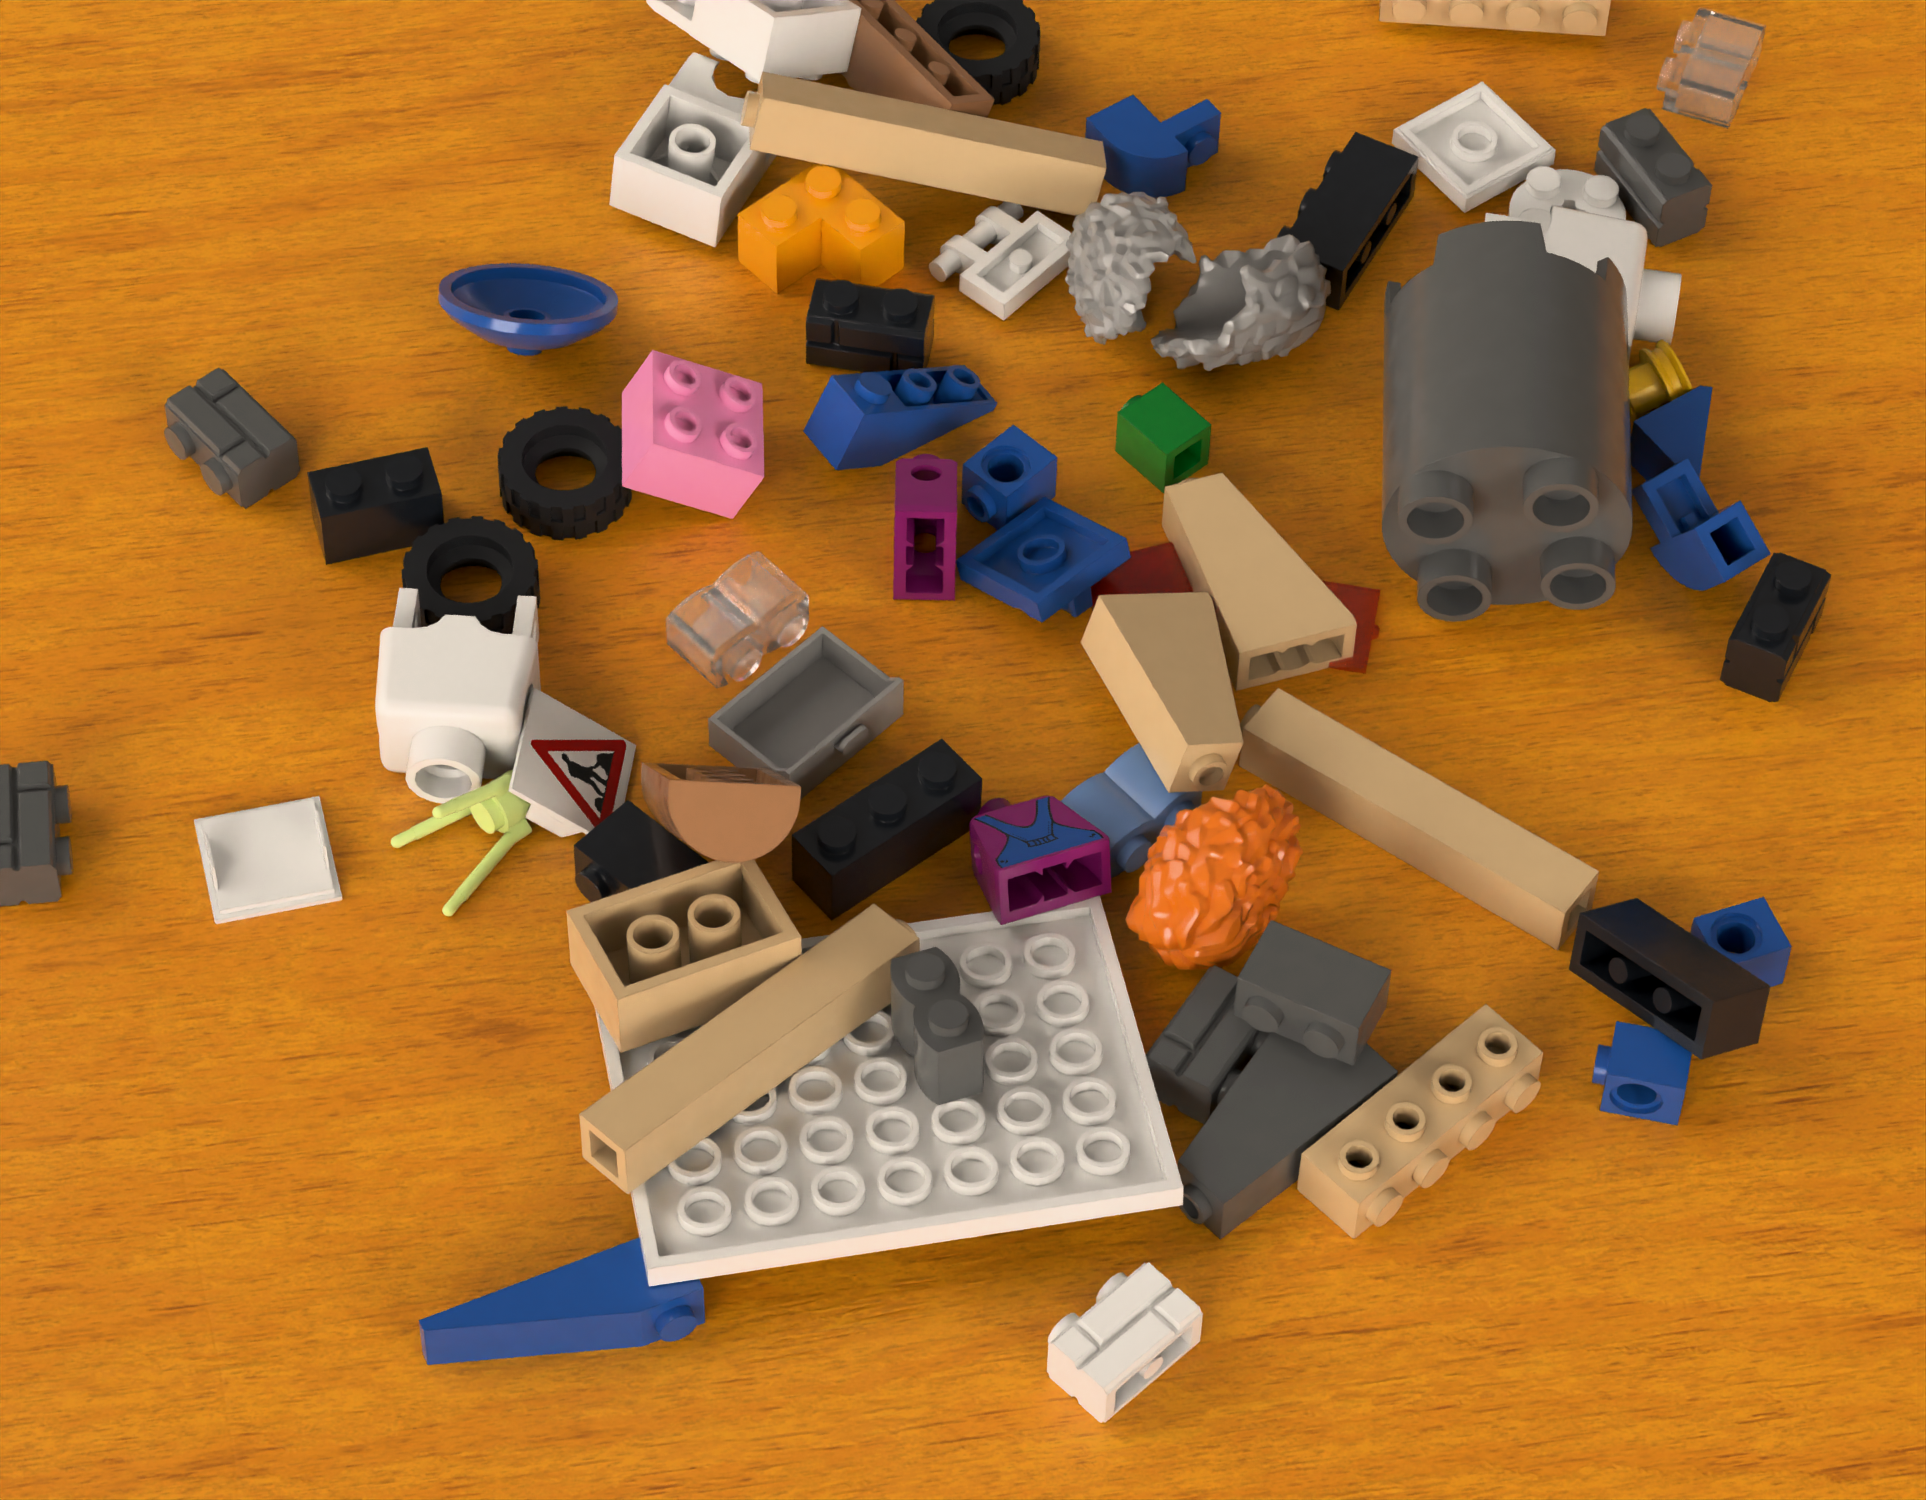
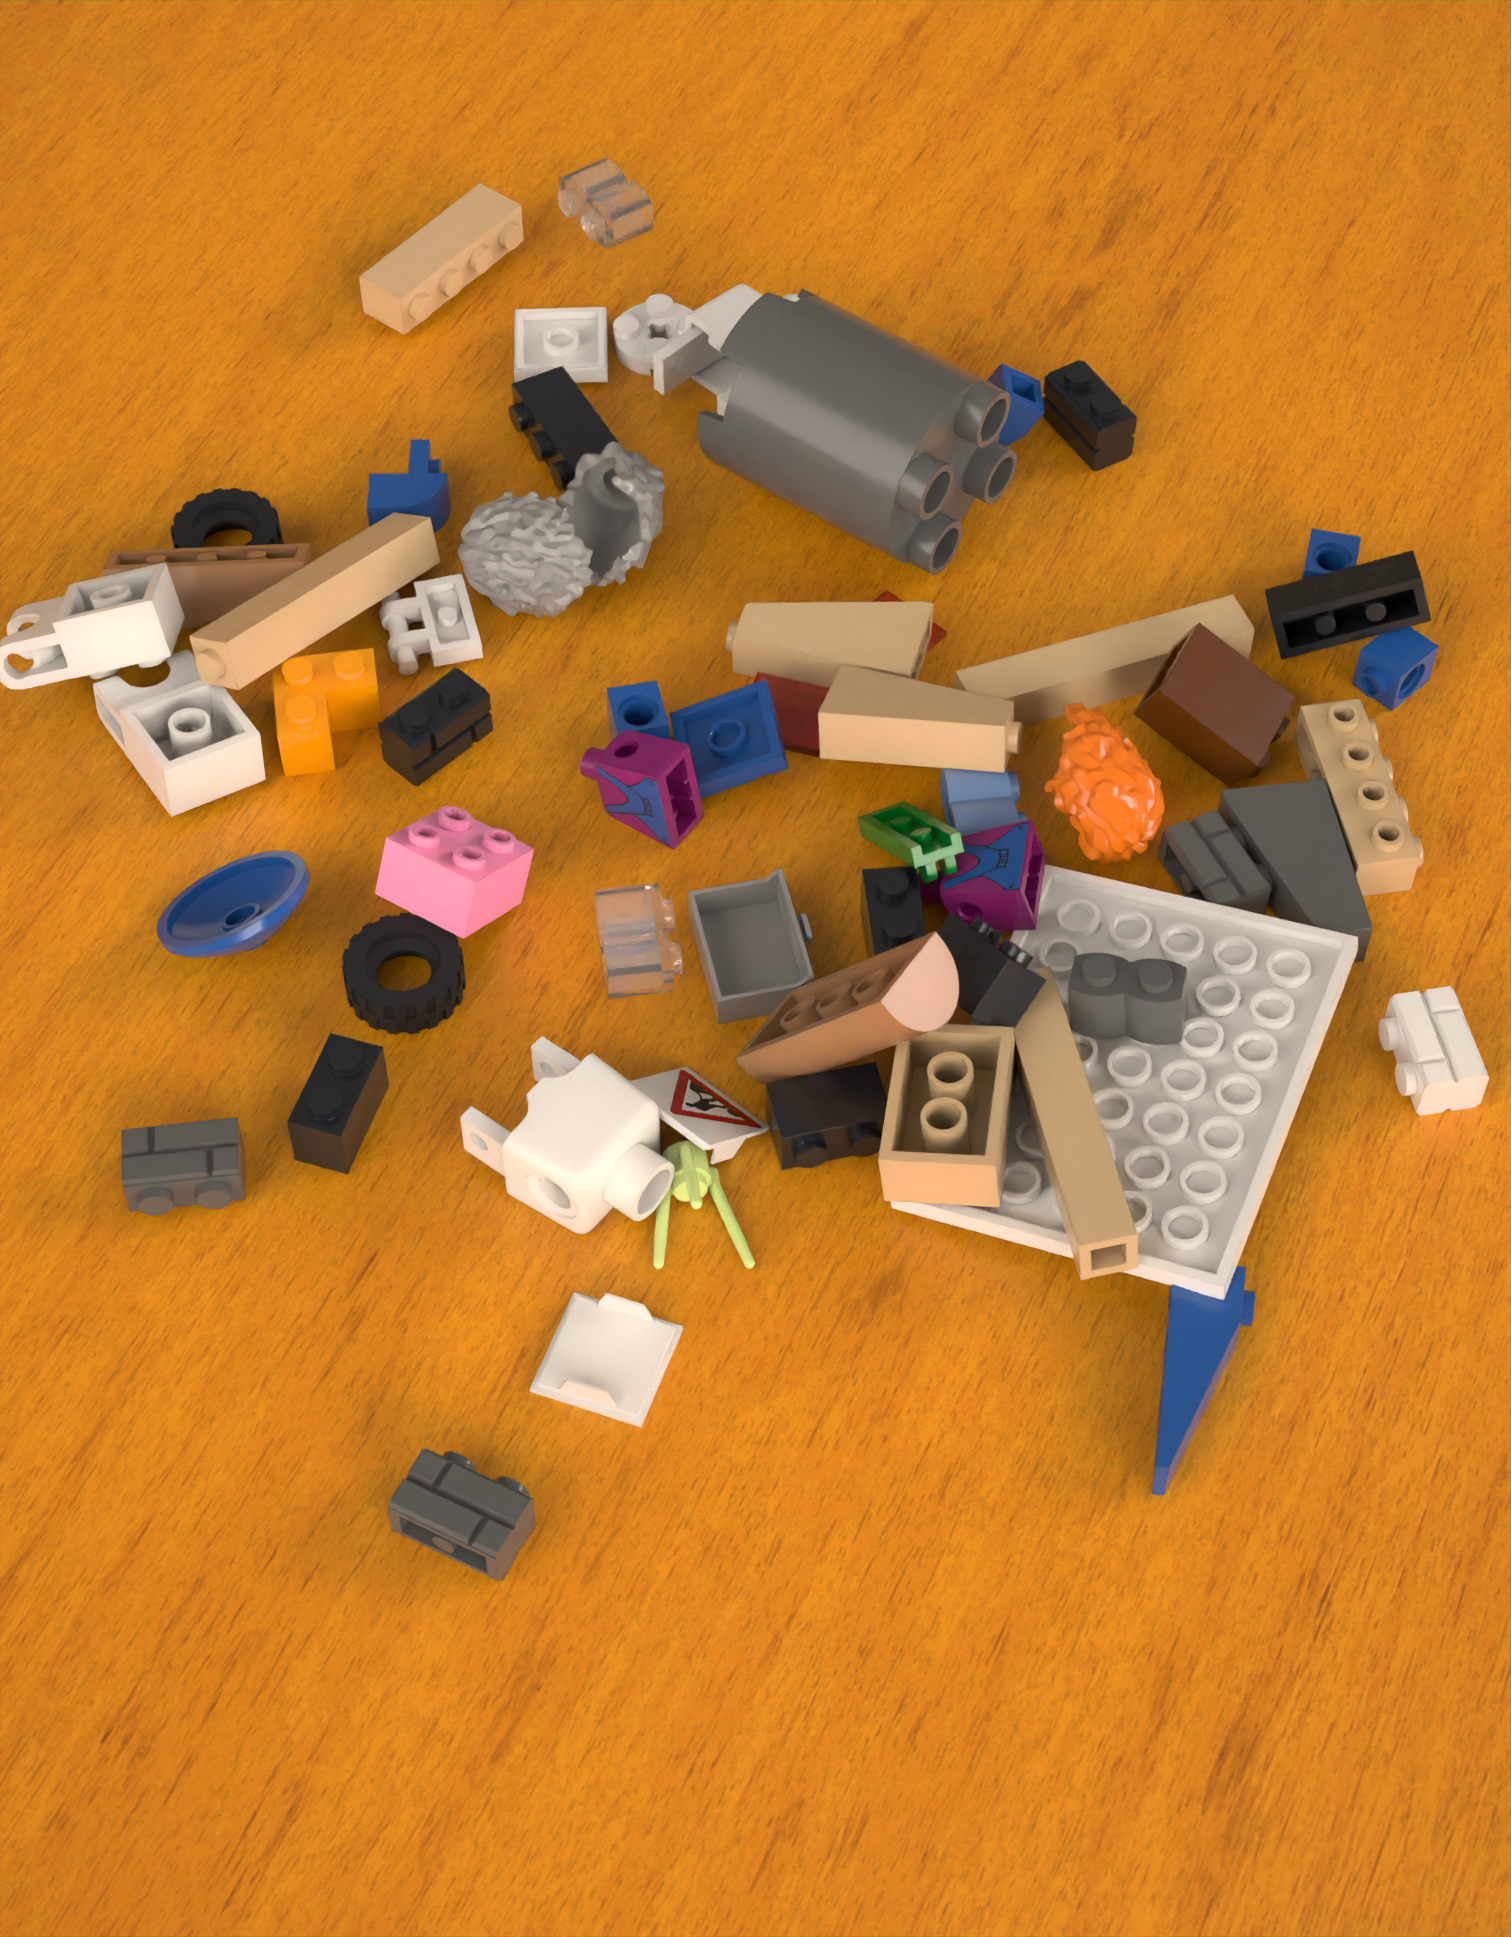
camera: 55 degrees left, 0 degrees up
(472, 544) = (452, 1048): black tyre -> none
(850, 880) = (992, 976): none -> black brick
(888, 413) = (520, 756): blue slope -> none
(1025, 763) = (913, 838): none -> green hinge
(1162, 437) = (670, 624): green brick -> none
(1311, 993) = (1253, 778): dark grey brick -> none
(1429, 924) = (1216, 706): none -> reddish brown brick
(1653, 177) = (681, 270): dark grey brick -> none

